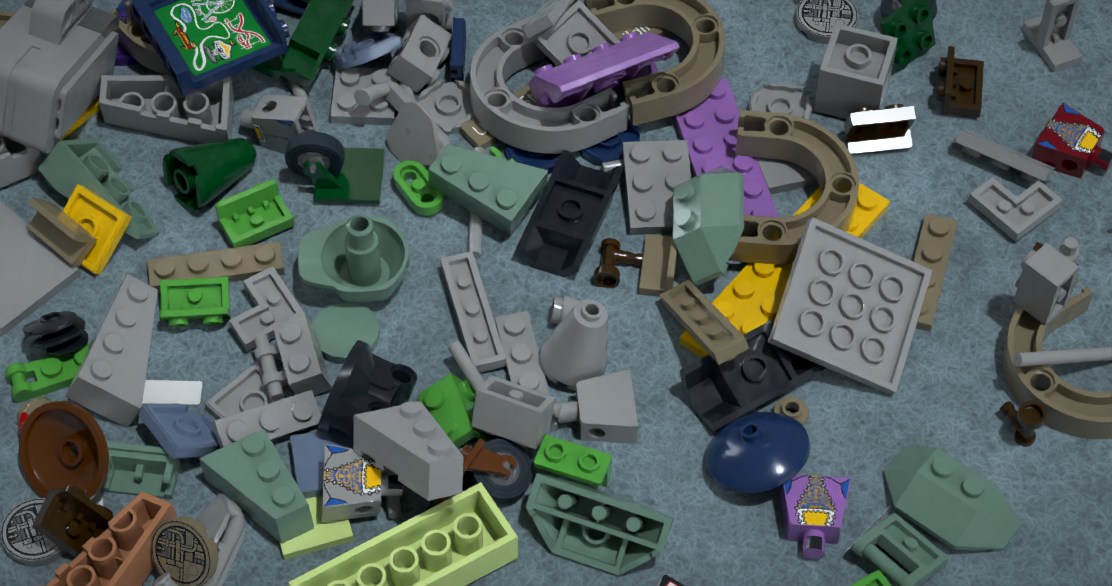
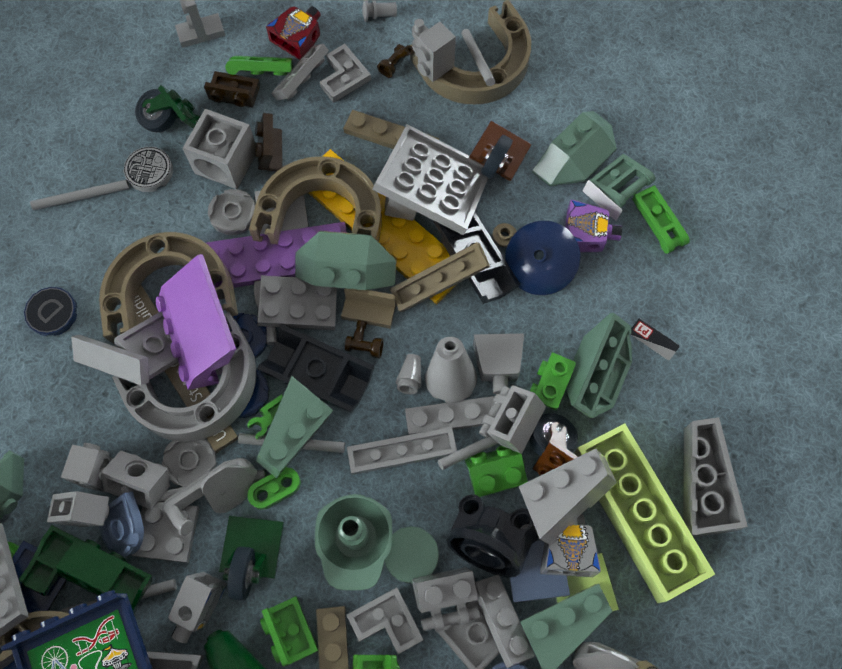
camera: 85 degrees left, 15 degrees up
(458, 49) = (136, 447): dark blue tile -> none
(916, 393) = (499, 151): none -> reddish brown plate
(1006, 109) = (258, 65): none -> bright green plate
(1029, 417) = (528, 84): dark brown piece -> none

